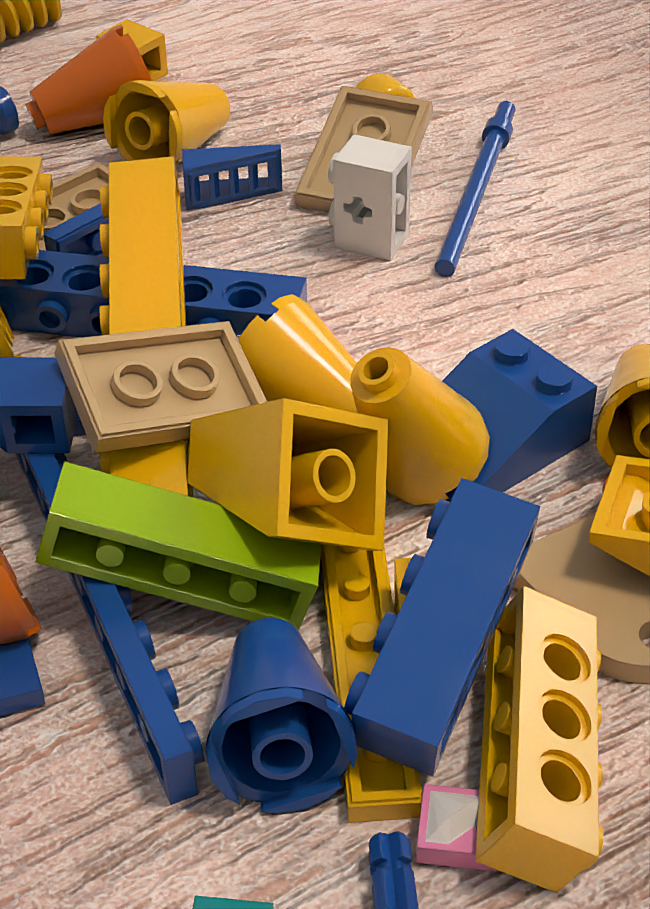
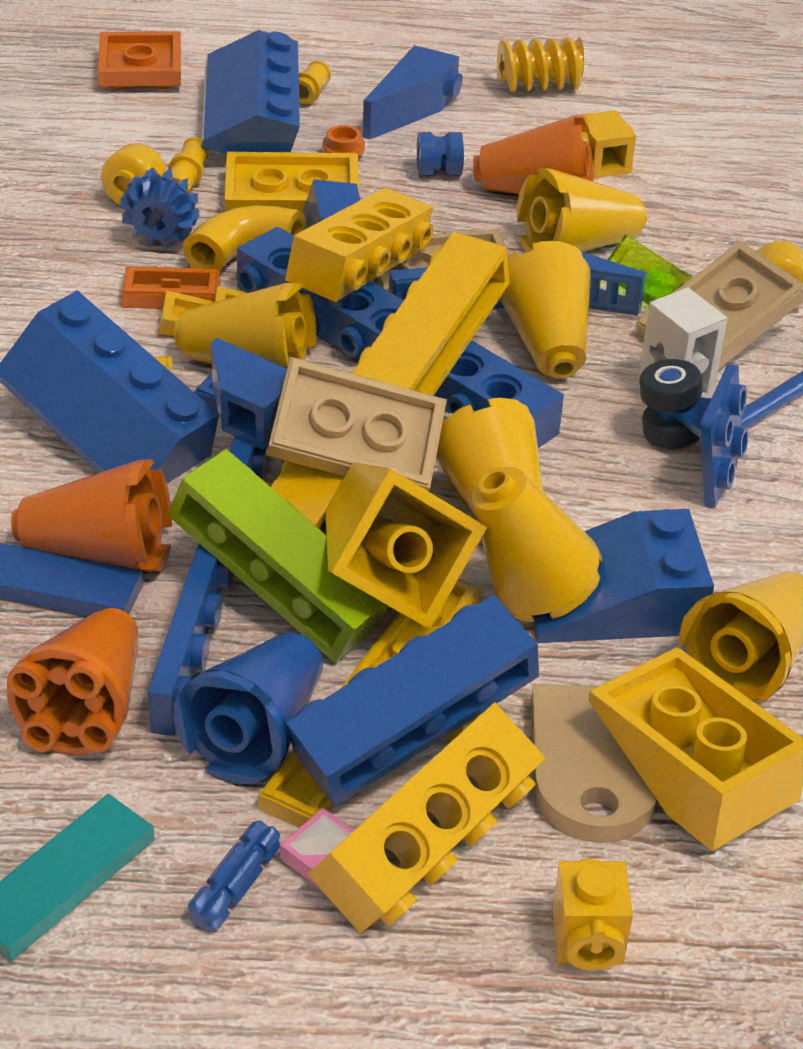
camera: 30 degrees right, 0 degrees up
(76, 796) = (76, 685): none -> orange cone
(224, 209) = (550, 305): none -> yellow cone
(295, 145) = (661, 276): none -> clear neon green slope
(410, 250) = (680, 417): none -> plate

